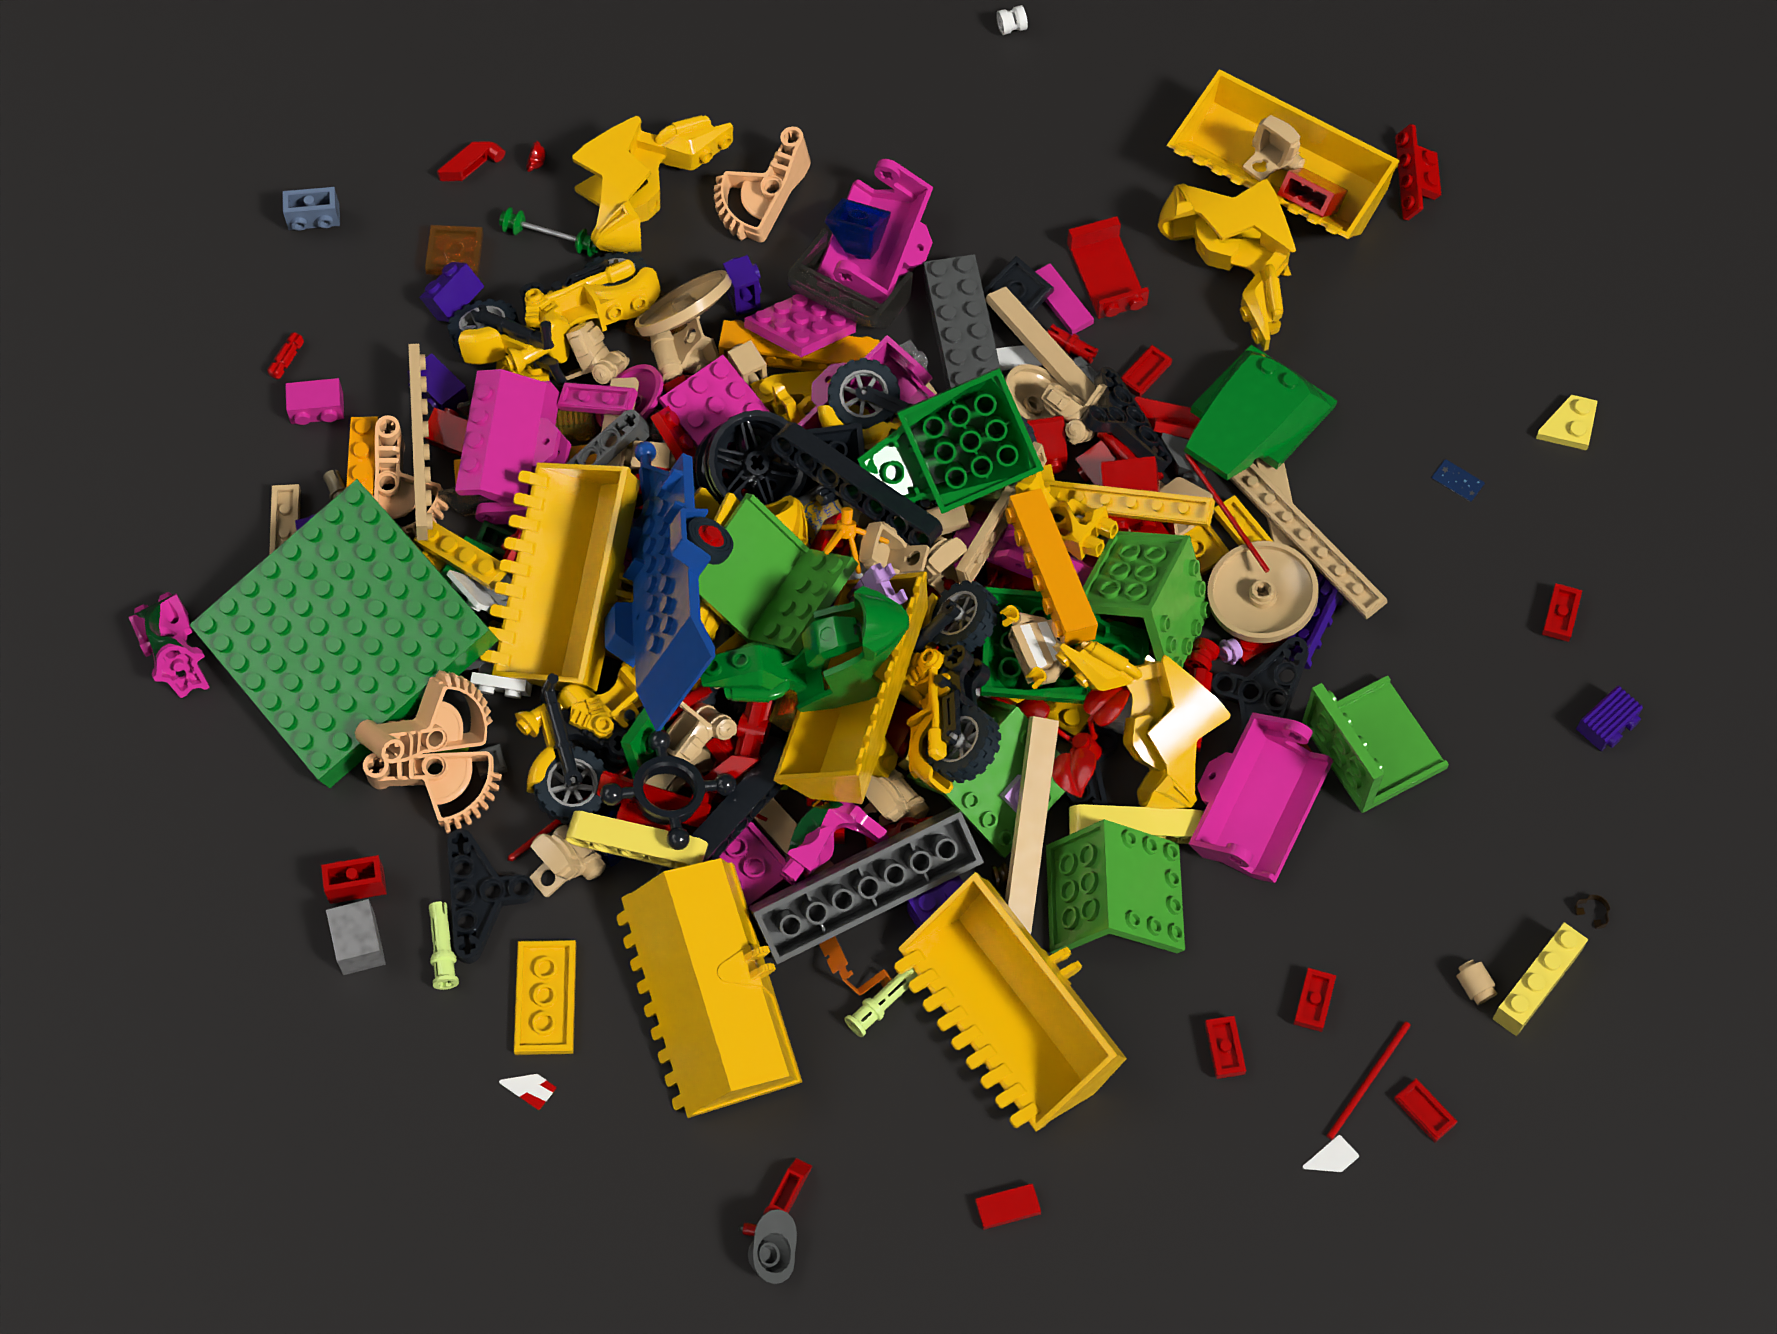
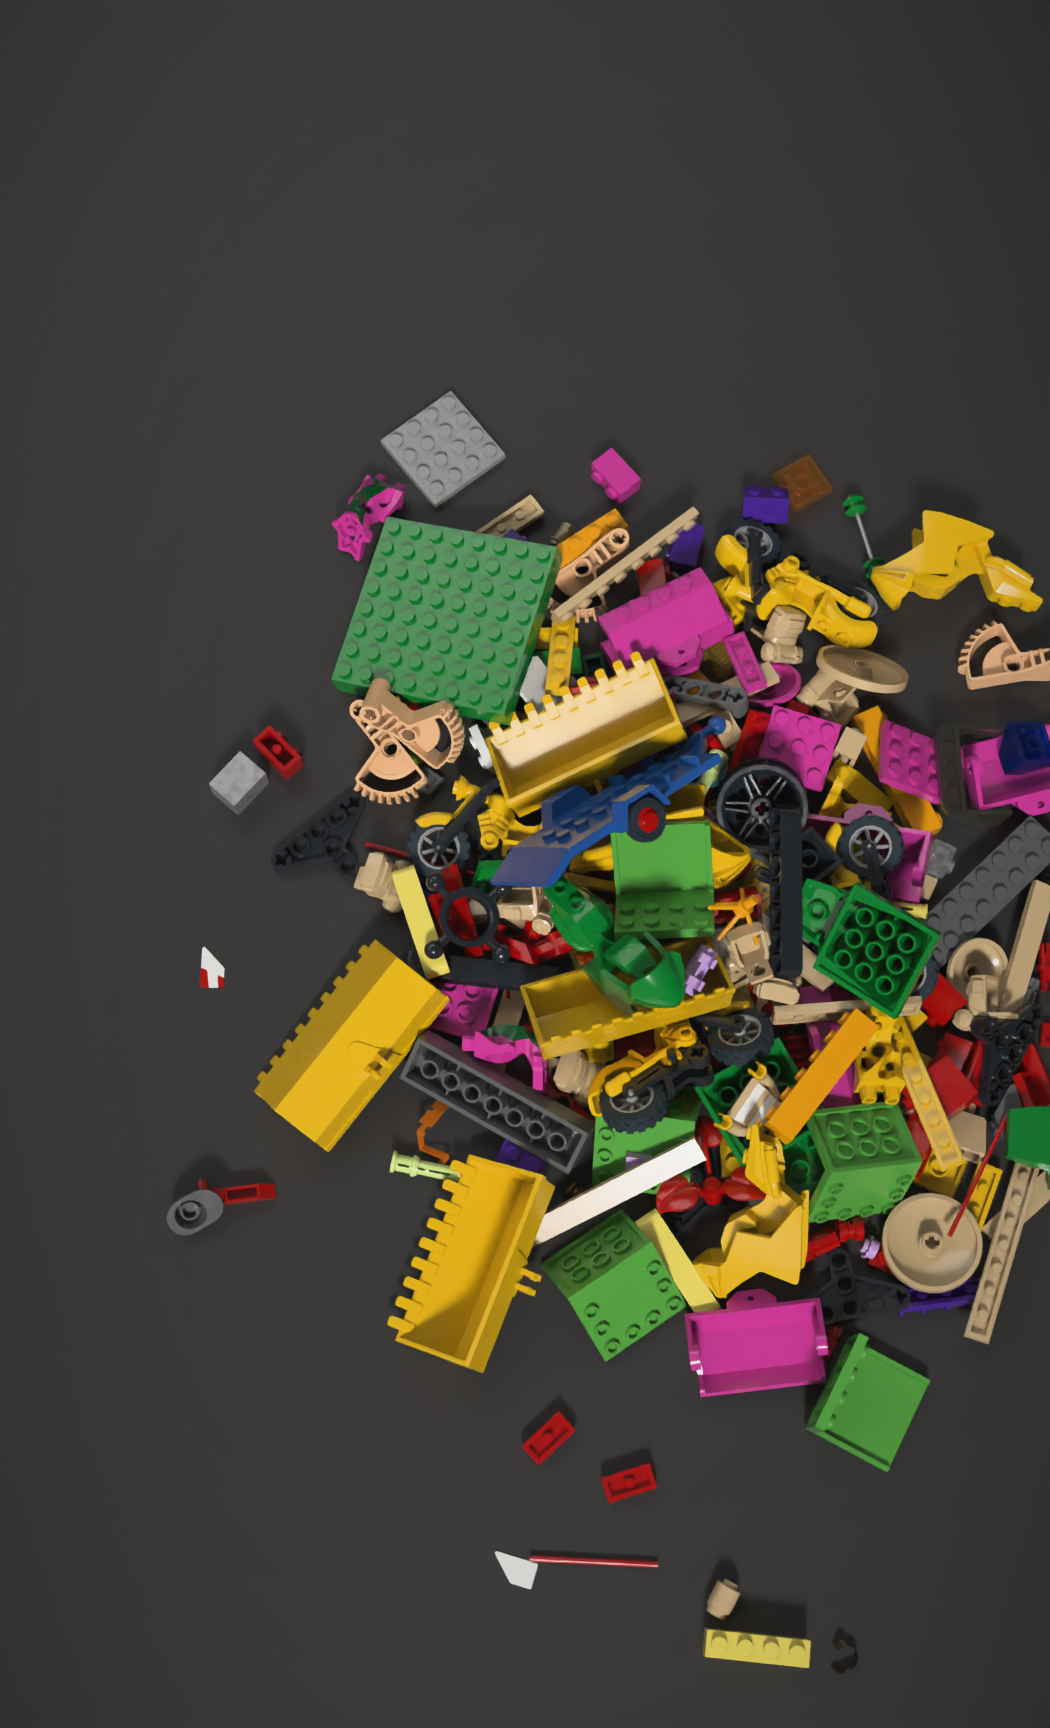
camera: 55 degrees right, 10 degrees up
(156, 538) = (443, 449): none -> light grey plate
(285, 355) = (638, 431): red axle -> none
(311, 208) = (761, 366): sand blue brick -> none
(442, 957) = (264, 849): yellowish green pin -> none
(469, 160) = (883, 442): red piece -> none
(536, 157) = (920, 485): red animal -> none
(545, 997) = (281, 936): yellow tile -> none
(745, 286) = (916, 699): dark purple brick -> none
(1008, 1206) = (330, 1355): red tile -> none
(1013, 356) = (1003, 931): white sticker -> none
(1425, 1110) = (596, 1618): red tile -> none
(1610, 718) = (1014, 1577): dark purple brick -> none

